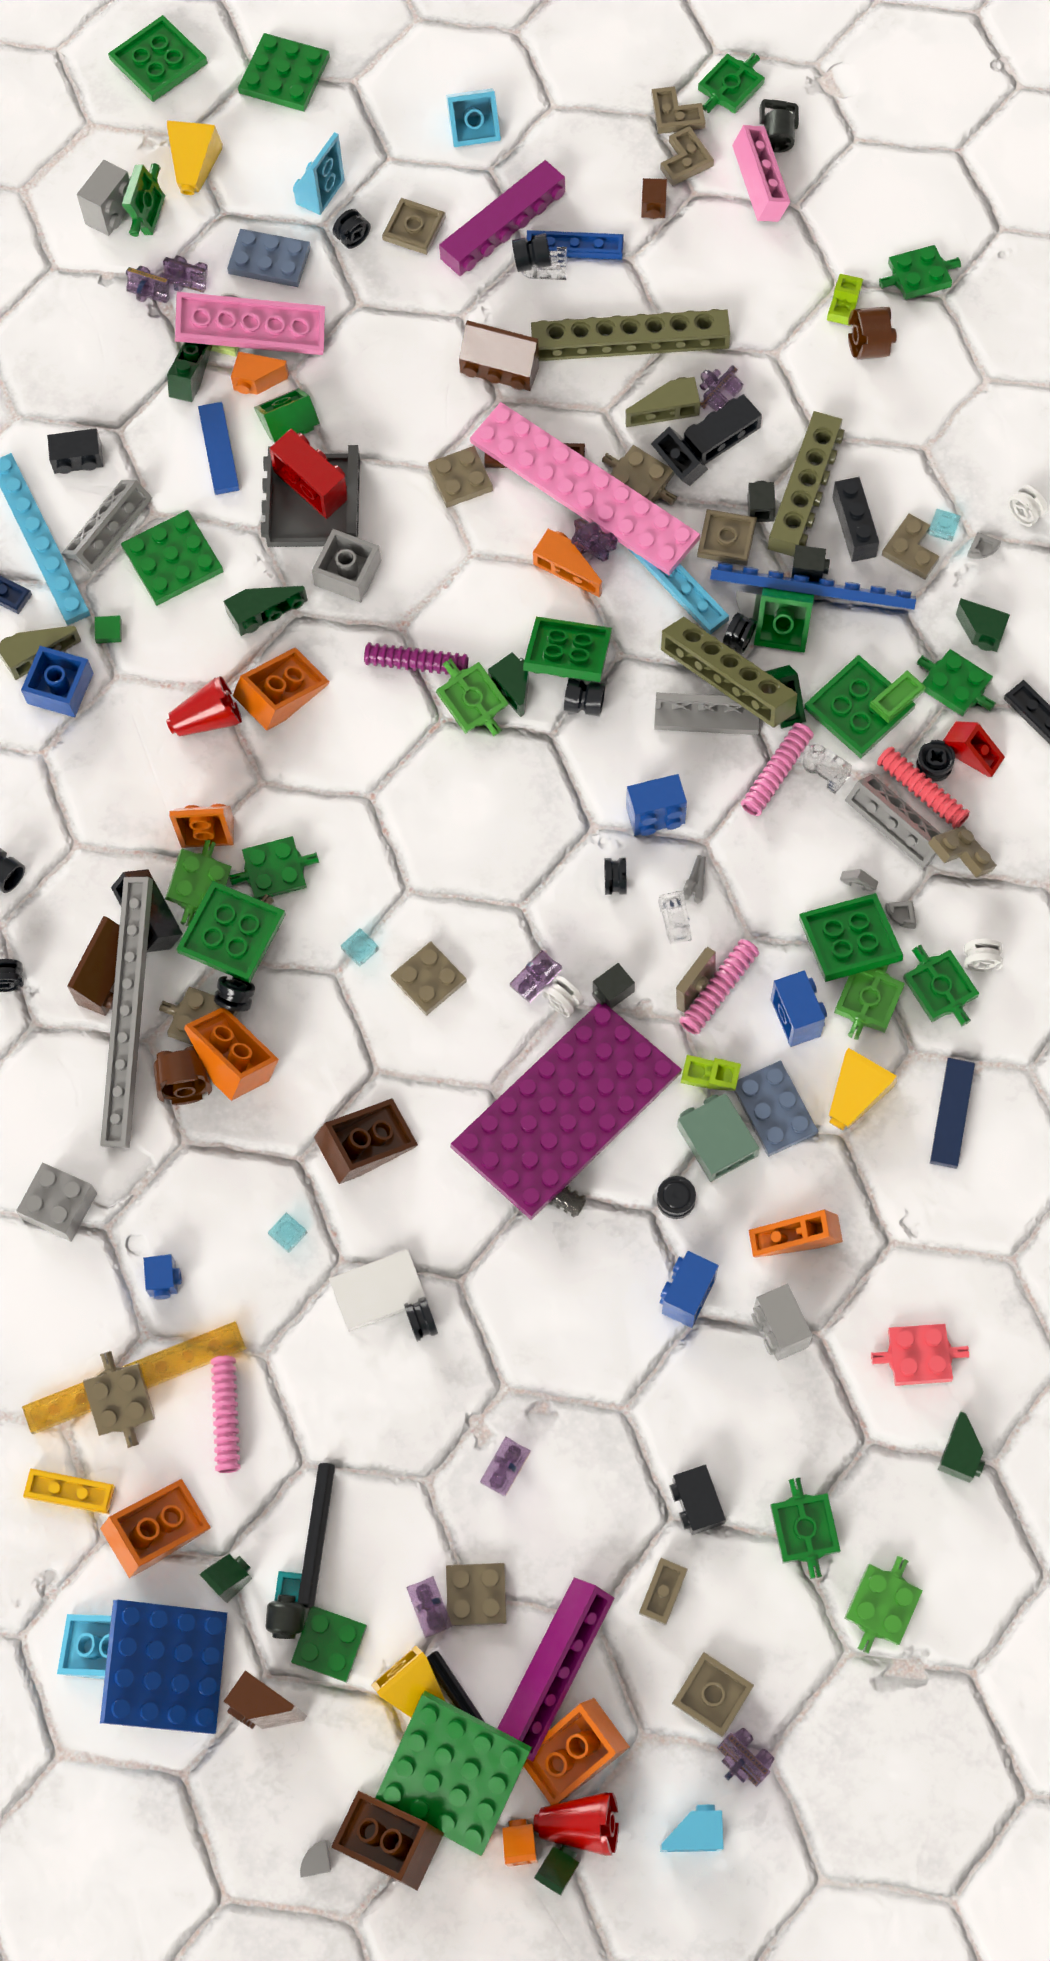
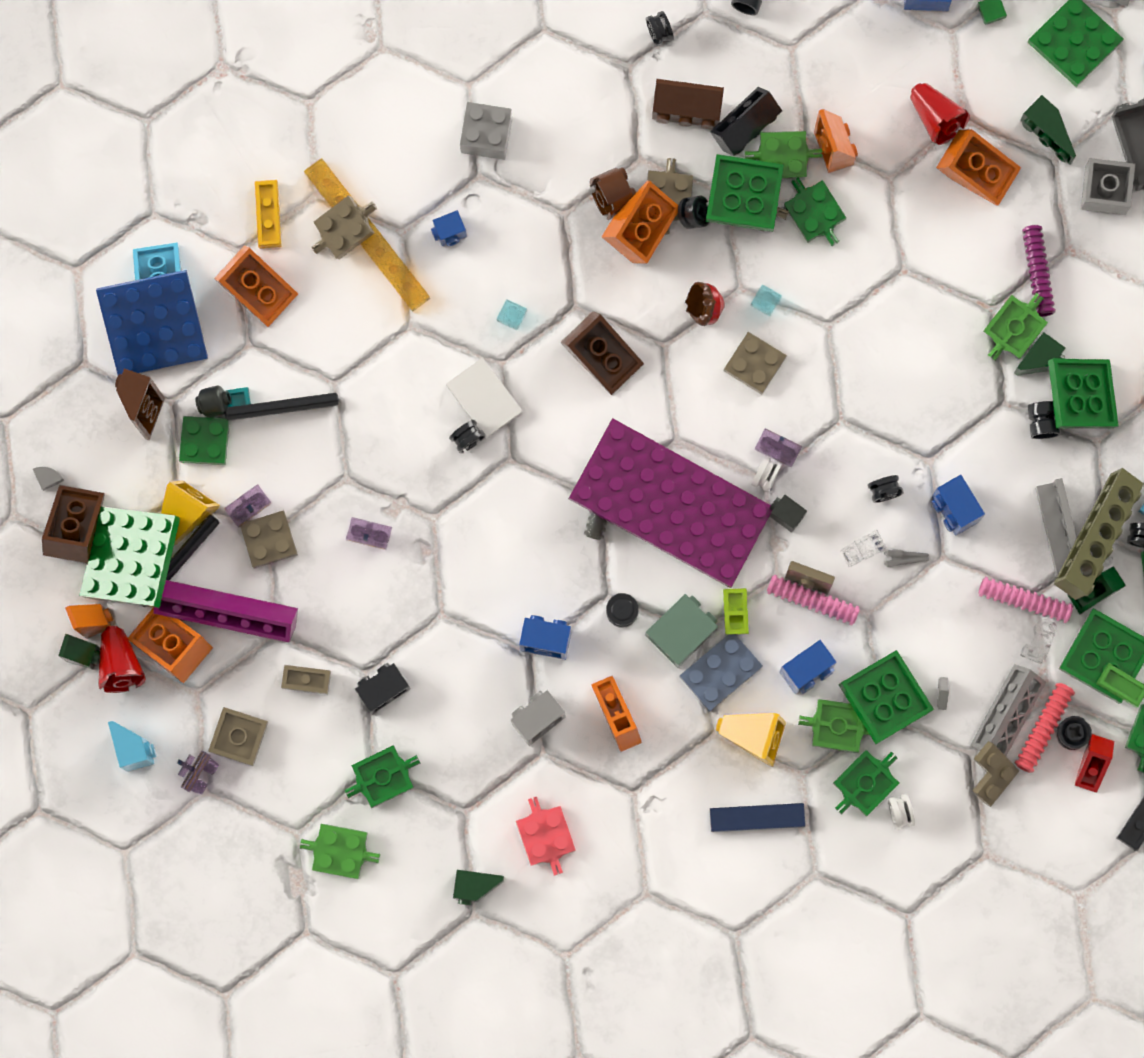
camera: 75 degrees right, 10 degrees up
(126, 1012) = (653, 132): light grey plate -> none
(225, 1414) = (355, 310): bright pink piece -> none
(227, 1576) = (230, 349): dark green slope -> none
(344, 1011) = (704, 303): none -> reddish brown hair
(902, 913) = (924, 737): light grey tile -> none

